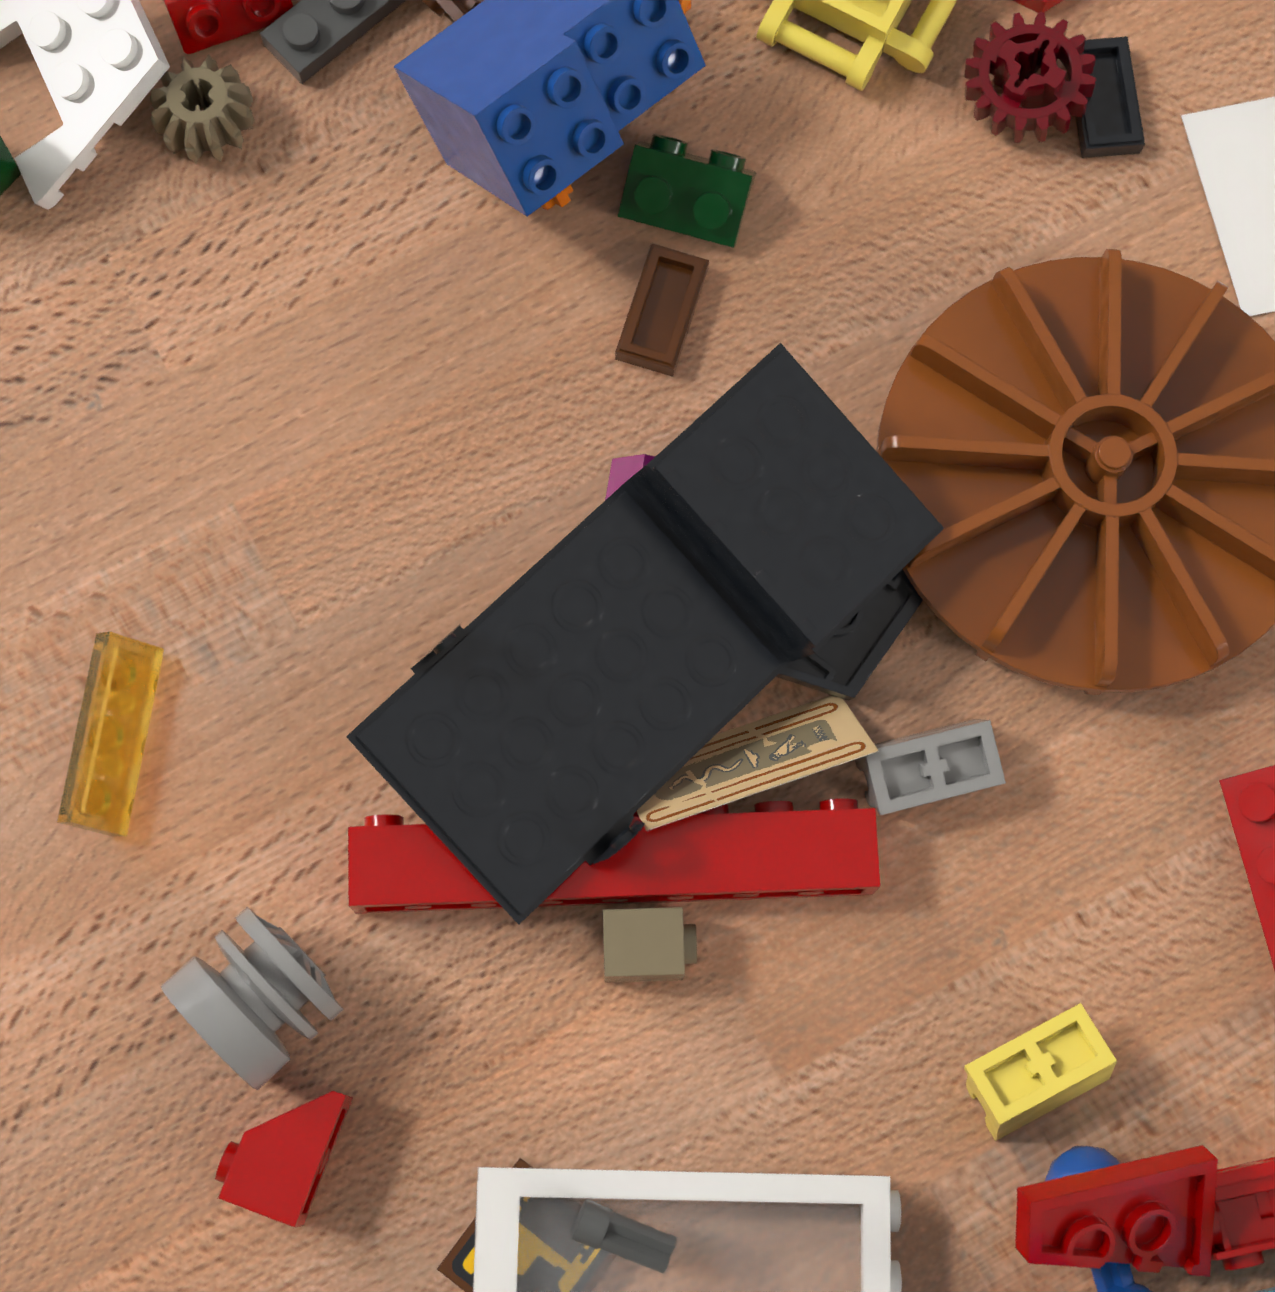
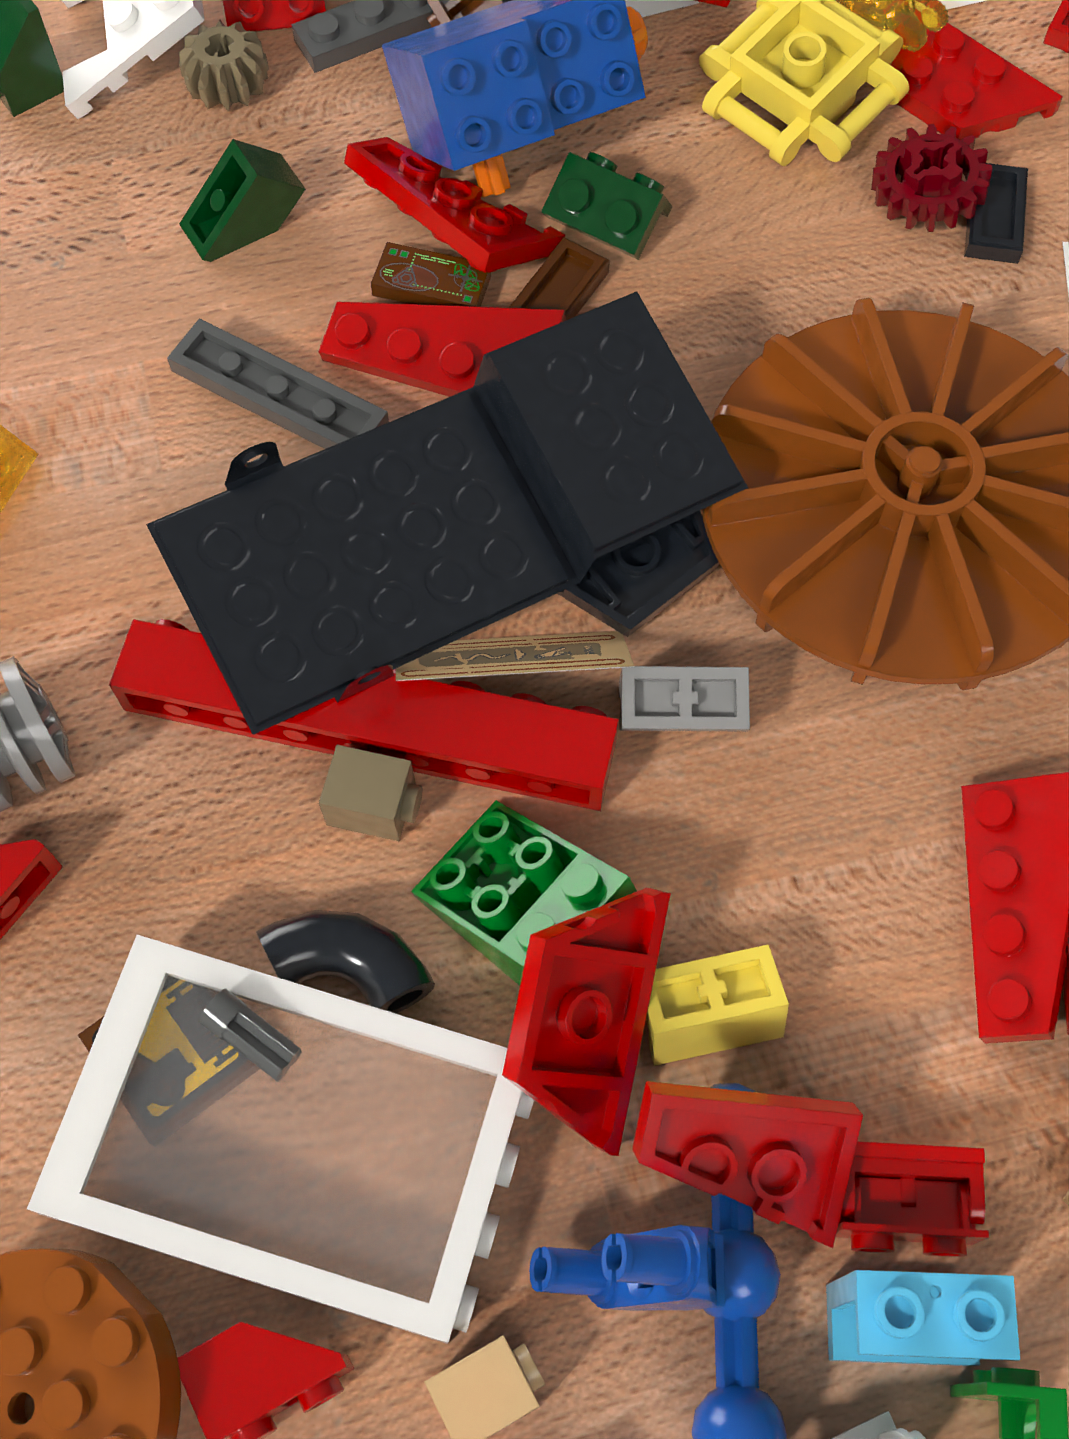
camera: 20 degrees right, 10 degrees down
(283, 286) = (241, 200): none -> dark green slope
(400, 510) = (272, 387): none -> dark grey plate
(521, 329) = (427, 278): none -> reddish brown tile
(547, 254) = (450, 207): none -> red wing
(565, 412) = (426, 344): none -> red wing
(675, 1111) = (351, 949): none -> black cylinder
(838, 1016) = (512, 882): none -> green slope
(933, 1121) = (586, 1014): none -> red wing

